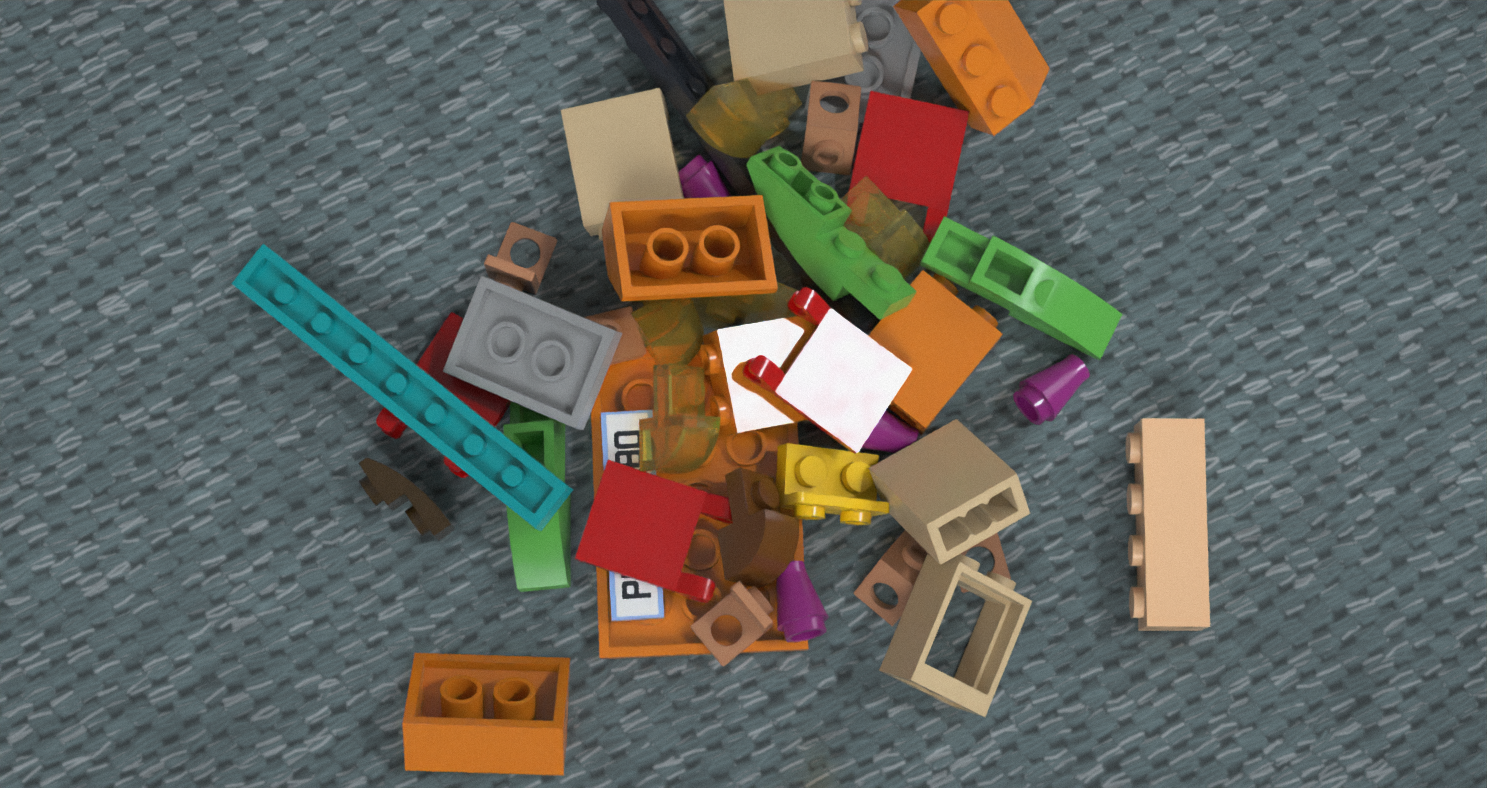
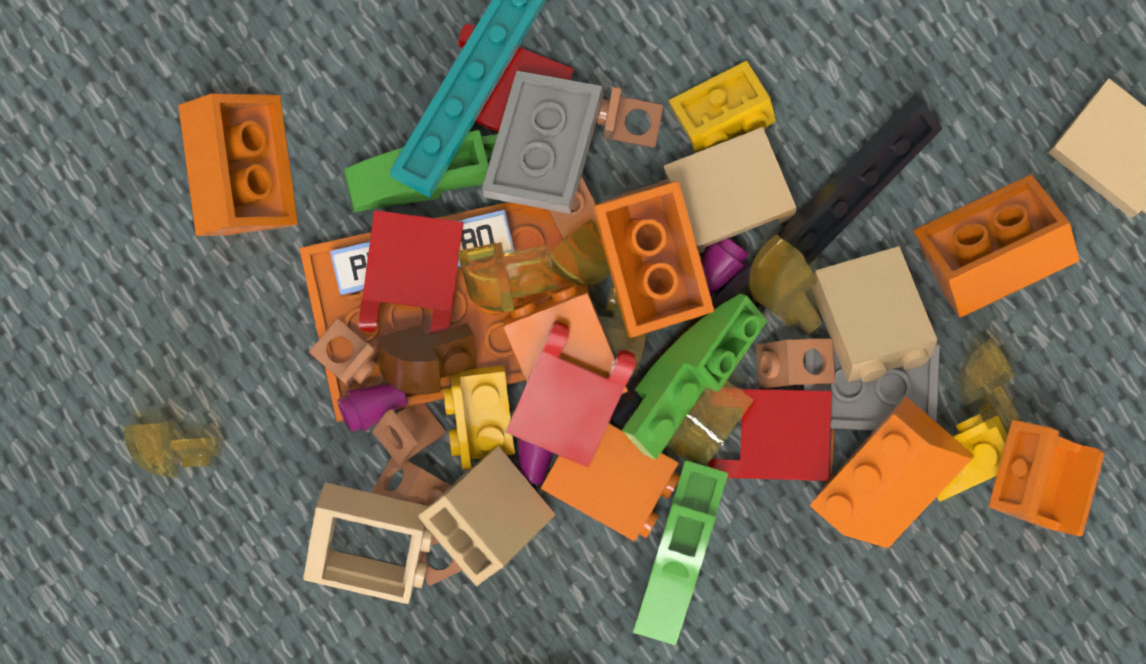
camera: 80 degrees right, 5 degrees up
(390, 486) = (412, 49): dark brown slope -> none
(529, 153) = (723, 108): none -> yellow bracket
(834, 569) = (408, 432): none -> nougat bracket
(1048, 391) = (598, 593): magenta cone -> none

